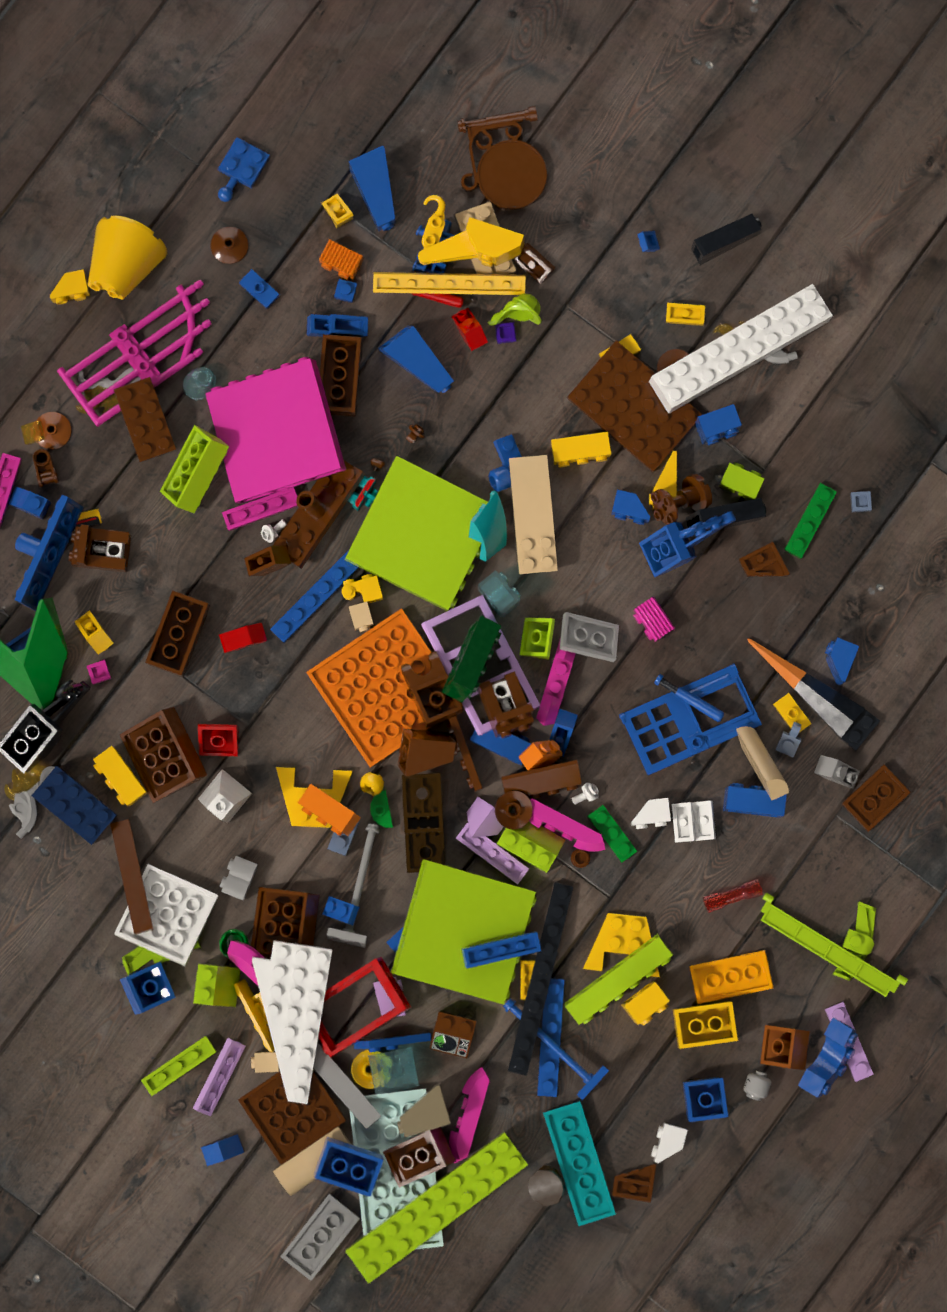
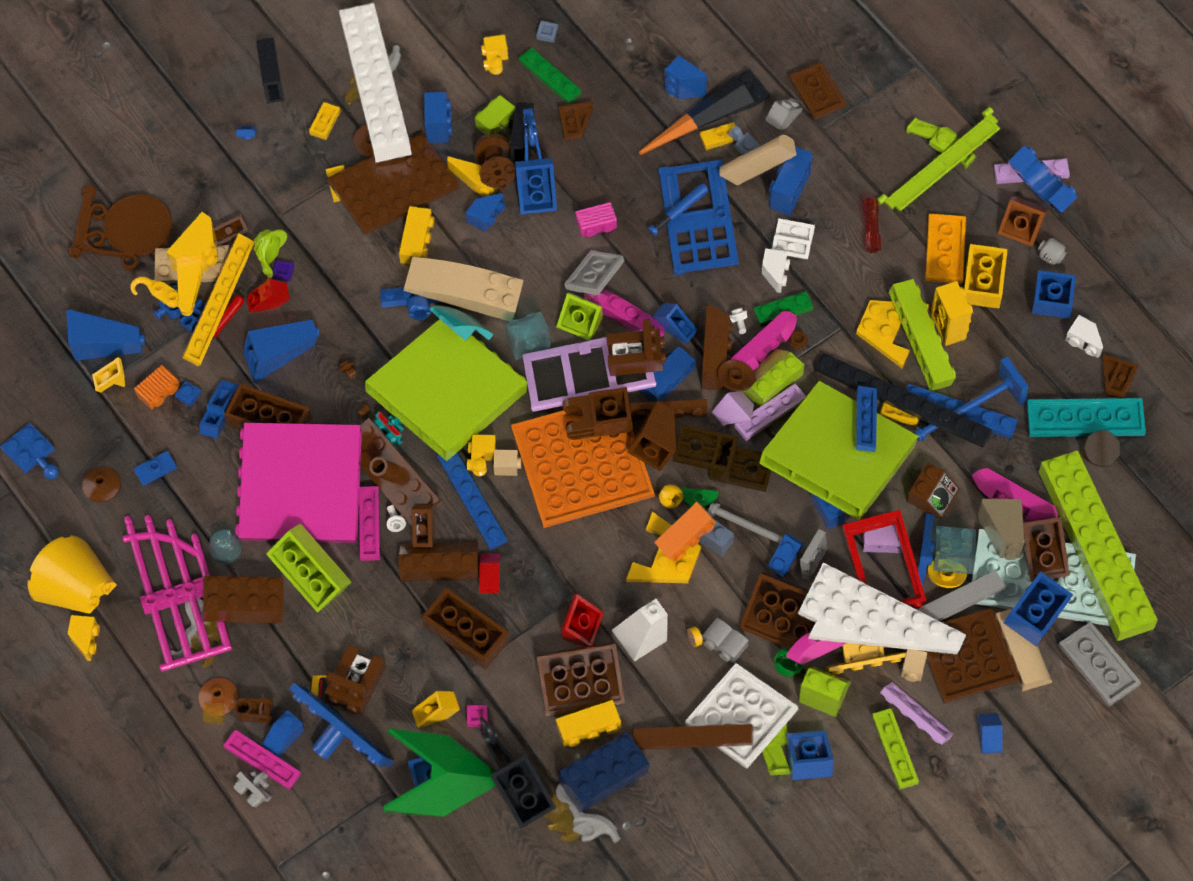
camera: 70 degrees left, 20 degrees down
(235, 848) = (694, 636): none -> yellow tile
(244, 592) = (439, 562): none -> reddish brown slope
(472, 659) = (583, 363): dark green brick -> none
(540, 754) = (691, 338): orange brick -> none
(820, 454) = (495, 51): none -> yellow brick

